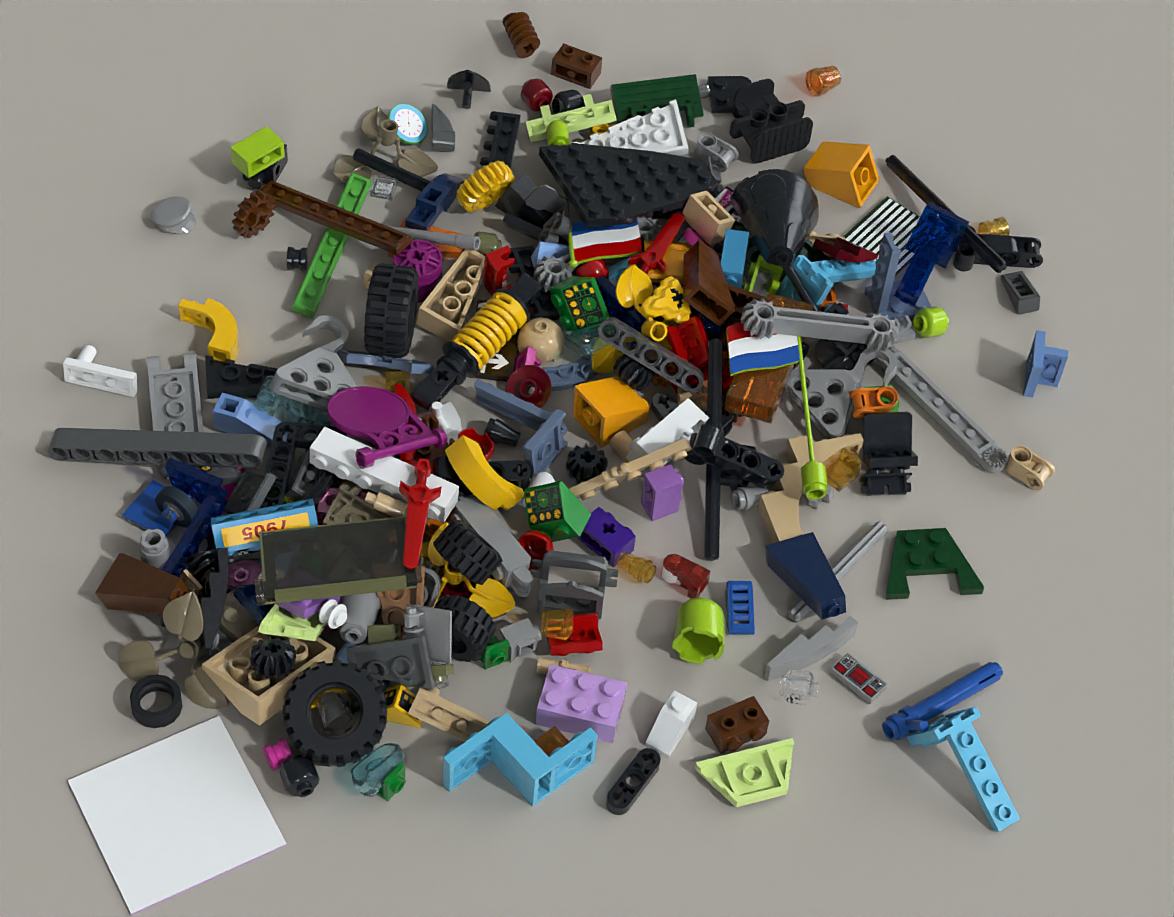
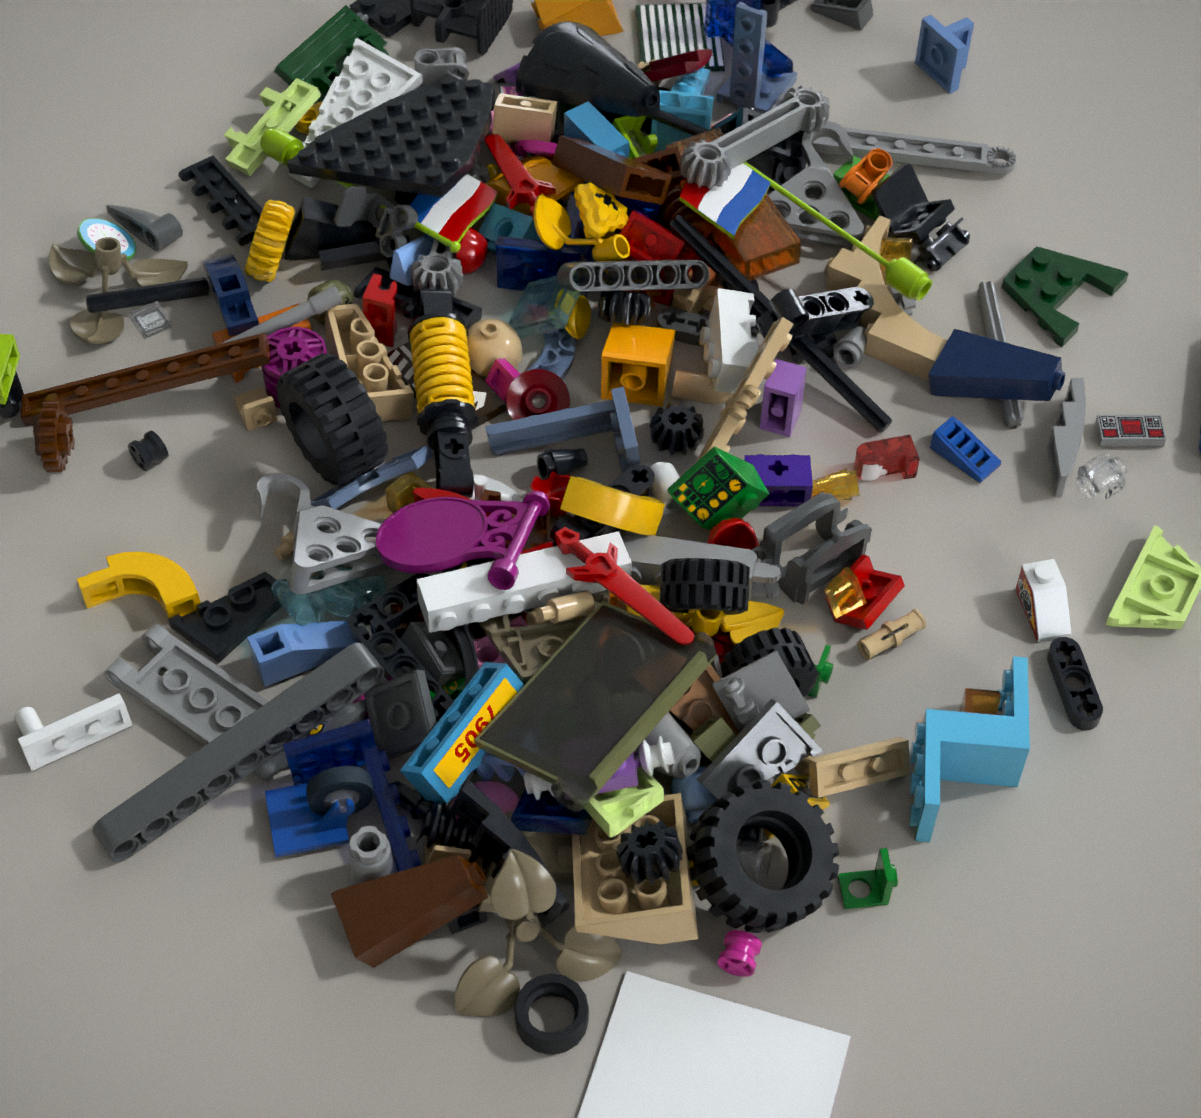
camera: 40 degrees left, 0 degrees up
(299, 775) = (789, 954): black head -> none
(329, 250) = (171, 420): bright green tile -> none
(375, 767) = (860, 879): clear light blue piece -> none
(468, 82) = (126, 158): black shield -> none
(521, 33) = (120, 80): reddish brown piece -> none
(522, 638) = (822, 630): light grey window -> none
(536, 94) = (206, 126): dark red head -> none
(567, 101) = (246, 112): black head -> none
(576, 66) = (212, 75): reddish brown brick -> none
(579, 303) = (500, 280): slope -> none
(580, 701) = (949, 650): lavender brick -> none
(699, 630) = (967, 494): lime cylinder -> none
(737, 725) = (1096, 554): reddish brown brick -> none
(931, 322) = (810, 75): lime head -> none
(1028, 466) = (1033, 145): tan piece -> none

